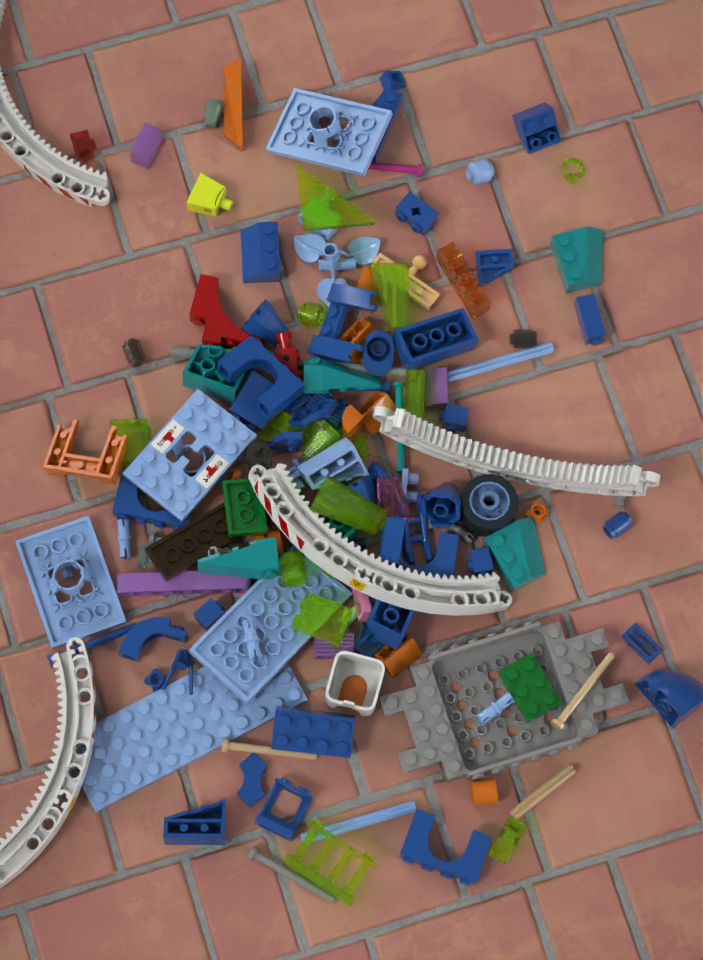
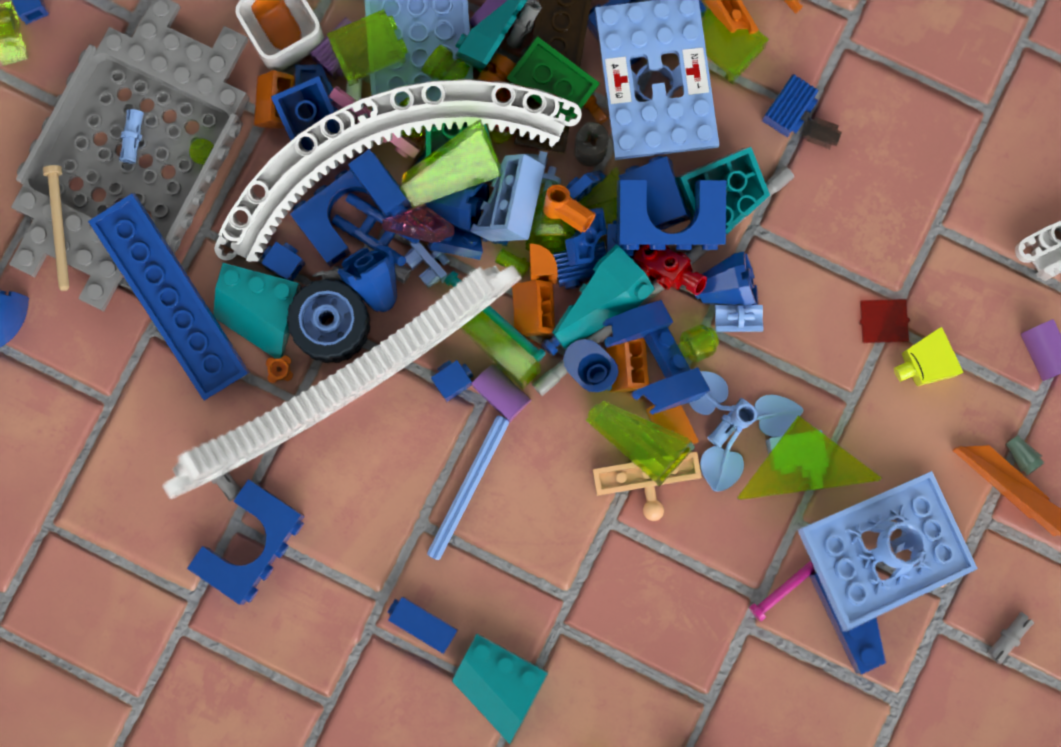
camera: 140 degrees right, 10 degrees up
(134, 380) = (790, 106): none -> blue brick
(207, 238) = (884, 321): none -> clear red piece
(208, 311) = (801, 246): red arch -> none
(260, 253) = (814, 357): blue slope -> none
(281, 304) = (738, 318): none -> light blue hips
(311, 427) = (560, 205): none -> orange piece
(312, 47) = (1010, 638): none -> light grey pin
(392, 80) = (891, 687): blue slope -> none
(407, 213) = (696, 566): blue brick -> none
(434, 339) = (550, 436): blue brick -> none
(463, 280) = (589, 531): clear orange brick -> none
(465, 662) = (200, 150): none -> clear neon green plate
(480, 171) = (695, 674): light blue head -> none
(483, 792) = (66, 51): orange piece -> none
(493, 264) = (578, 584): blue wing -> none
(523, 338) = (468, 534): clear smoke brick -> none
(529, 688) = (110, 181): green plate -> none
(542, 791) = (17, 110): tan axle -> none
(559, 597) = (168, 296): none -> blue plate
(617, 524) = (188, 432): blue brick -> none
(635, 647) = (56, 352): blue tile -> none
(660, 427) = (279, 524): none -> blue arch

